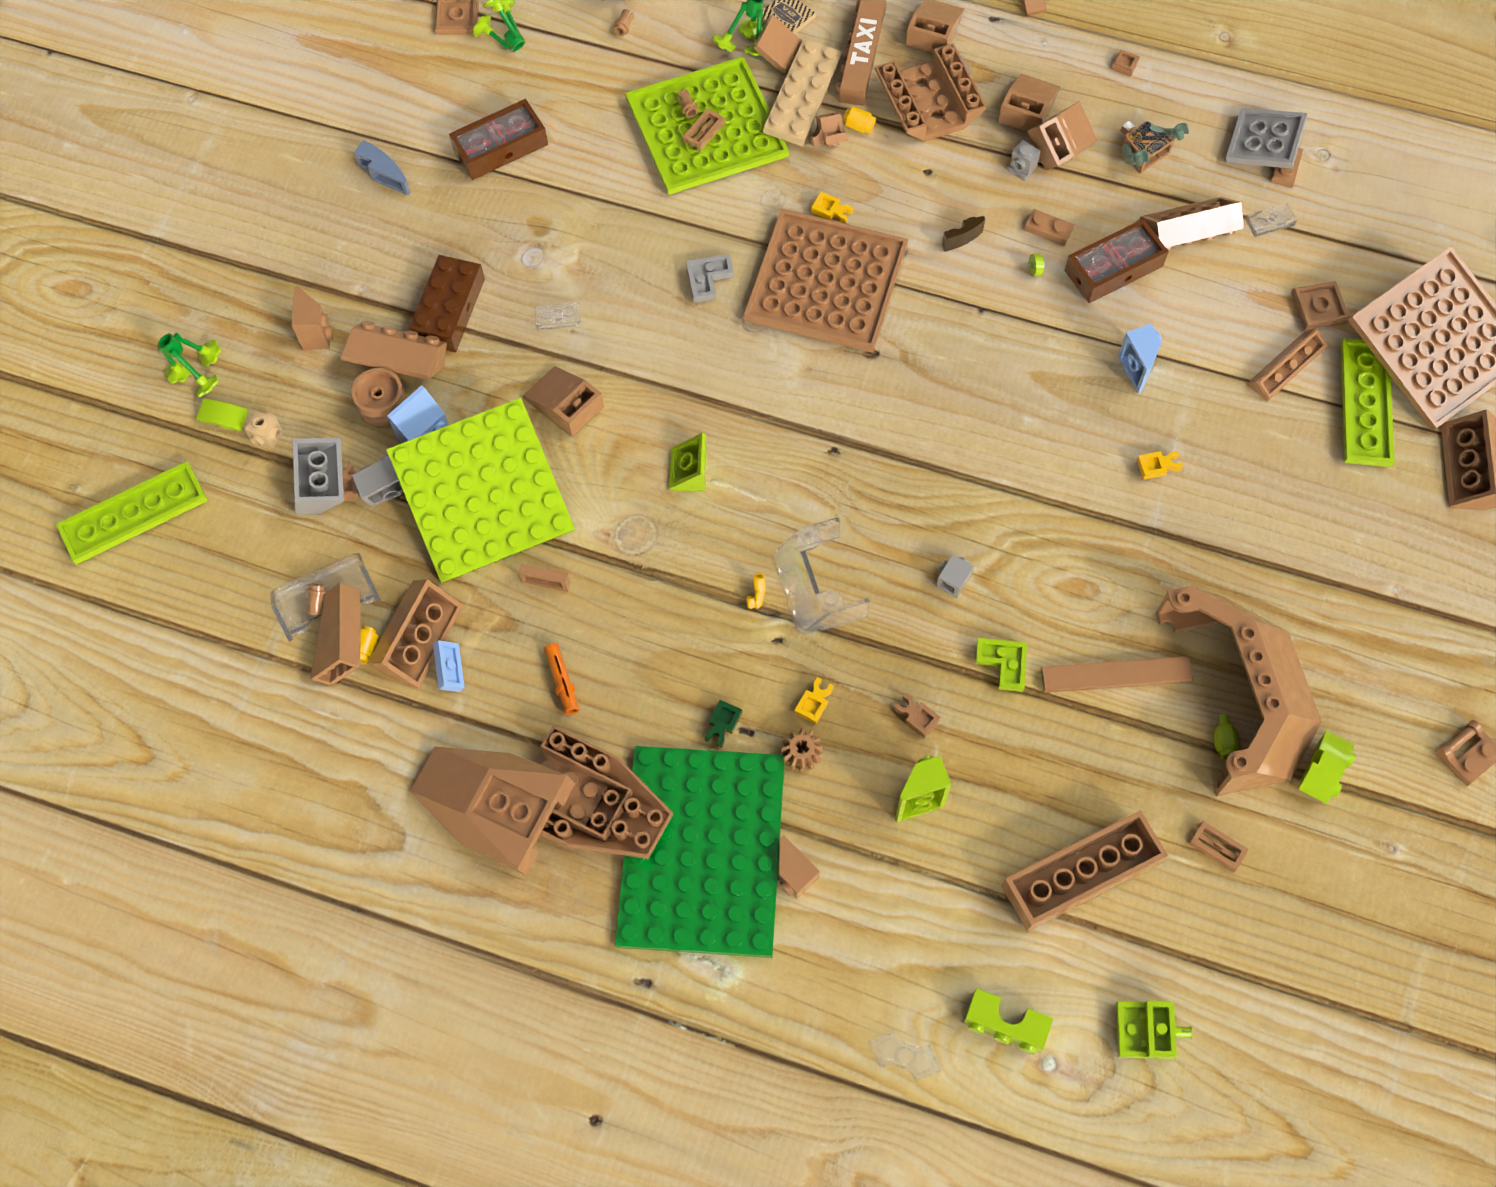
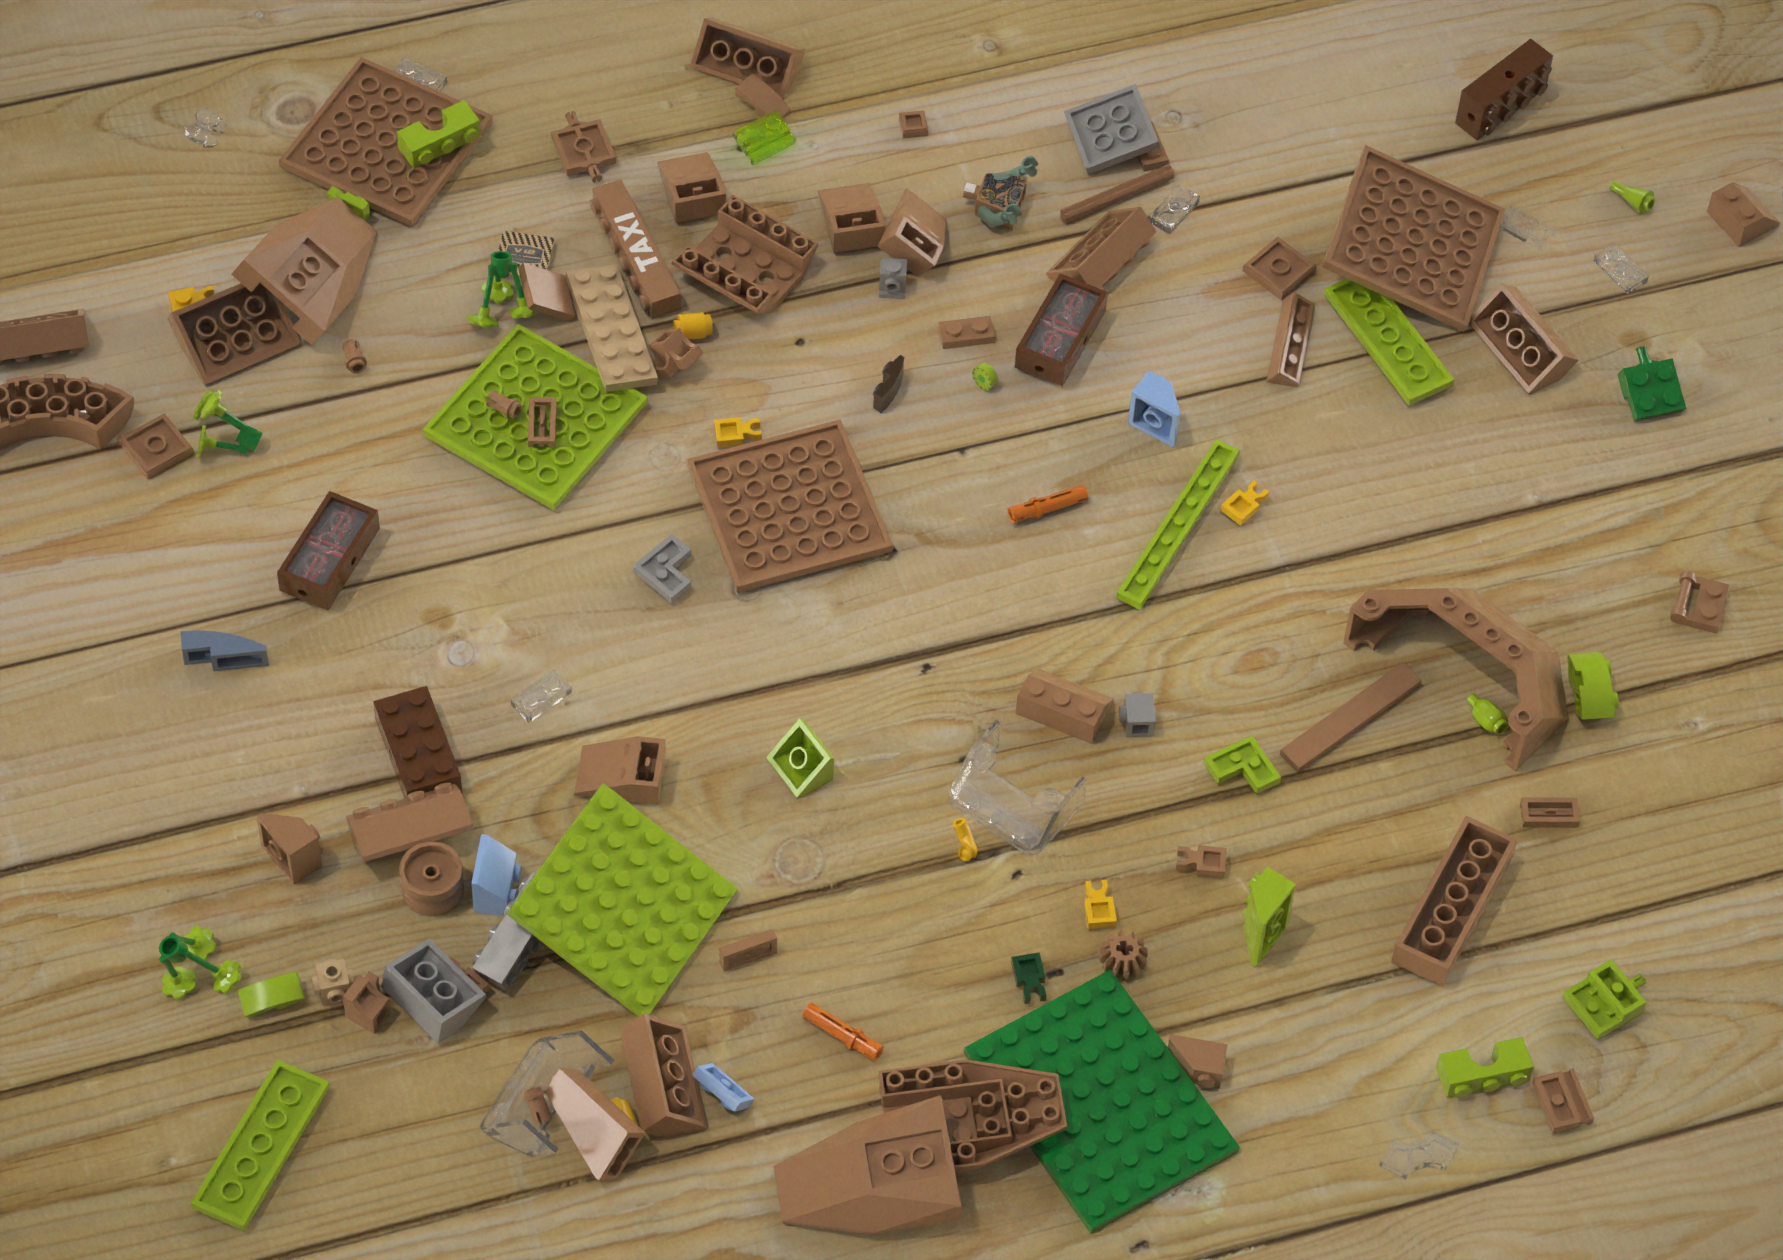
camera: 40 degrees left, 10 degrees down
(273, 456) = (365, 1003): none -> medium nougat brick
(907, 534) = (1063, 705): none -> medium nougat slope
(1008, 381) = (1043, 505): none -> orange pin
(1012, 18) = (764, 137): none -> clear neon green plate
(1050, 1090) = (1562, 1100): none -> medium nougat plate
(1095, 451) = (1177, 524): none -> lime plate
(1237, 187) = (1117, 193): none -> medium nougat axle

